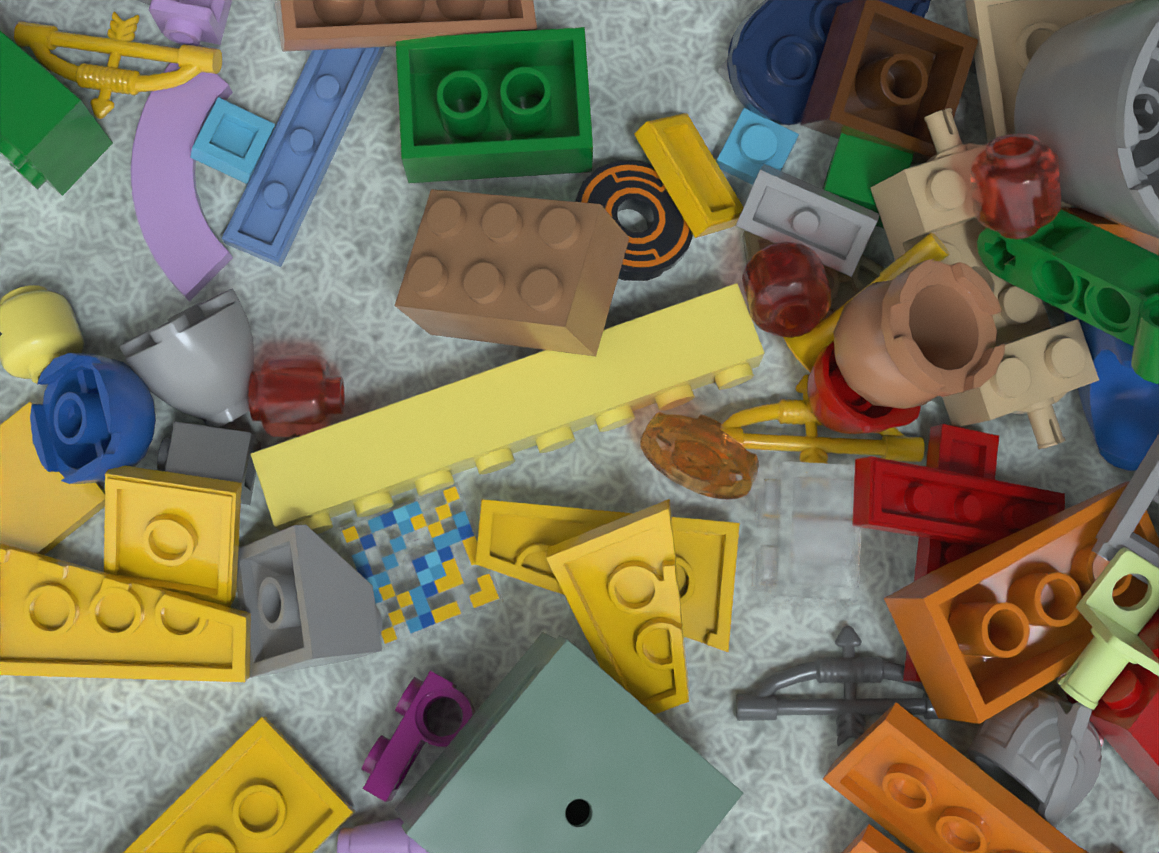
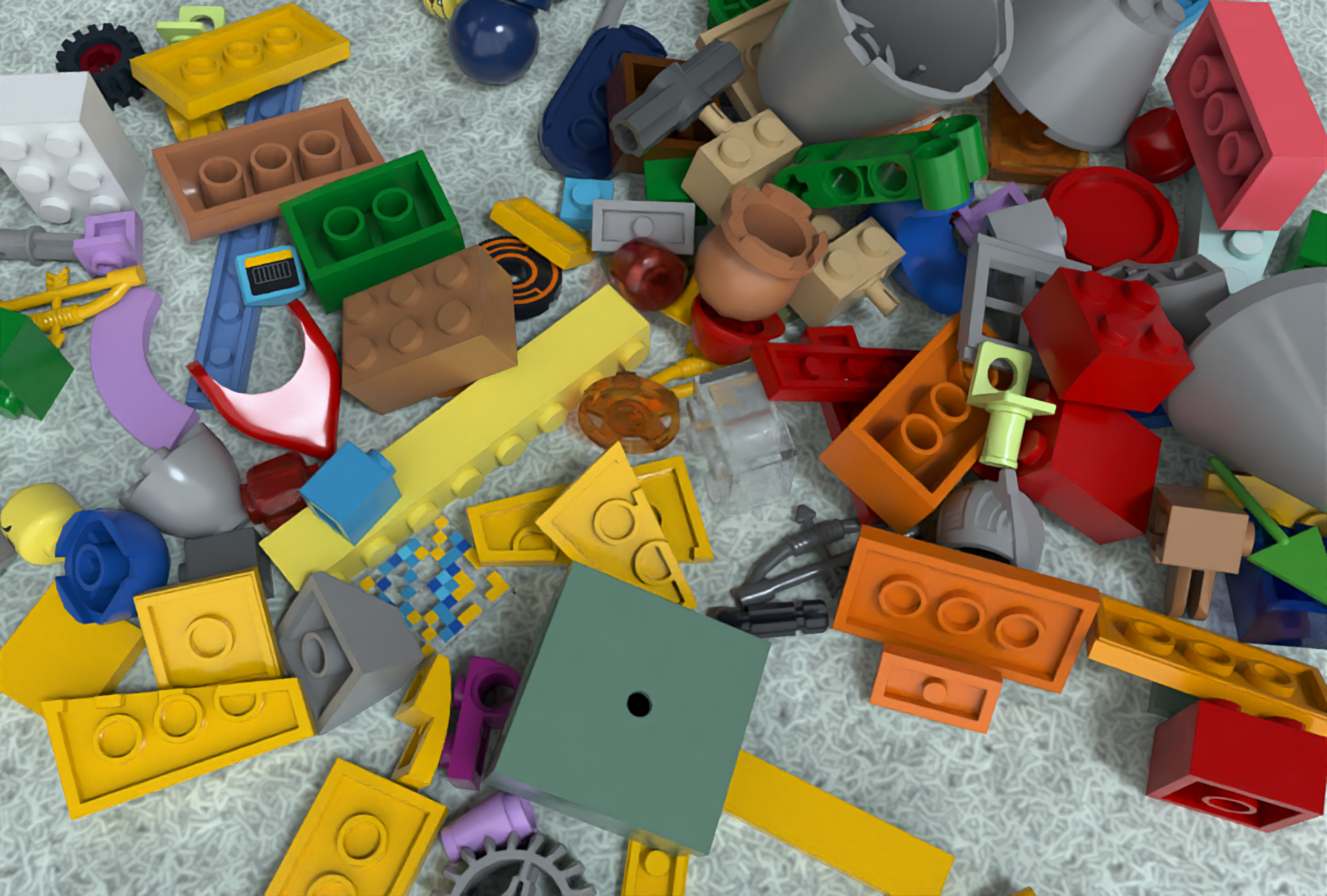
camera: 20 degrees left, 15 degrees down
(232, 140) = (171, 328): medium azure plate -> none
(333, 303) = (297, 415): none -> animal
(360, 117) = (270, 276): none -> slope
(366, 443) = (352, 491): none -> dark azure brick
(370, 695) = (428, 712): none -> yellow slope
(762, 745) = (777, 618): none -> black axle
(909, 83) = (676, 97): none -> dark grey piece
(1016, 185) = (784, 125): clear red head -> none

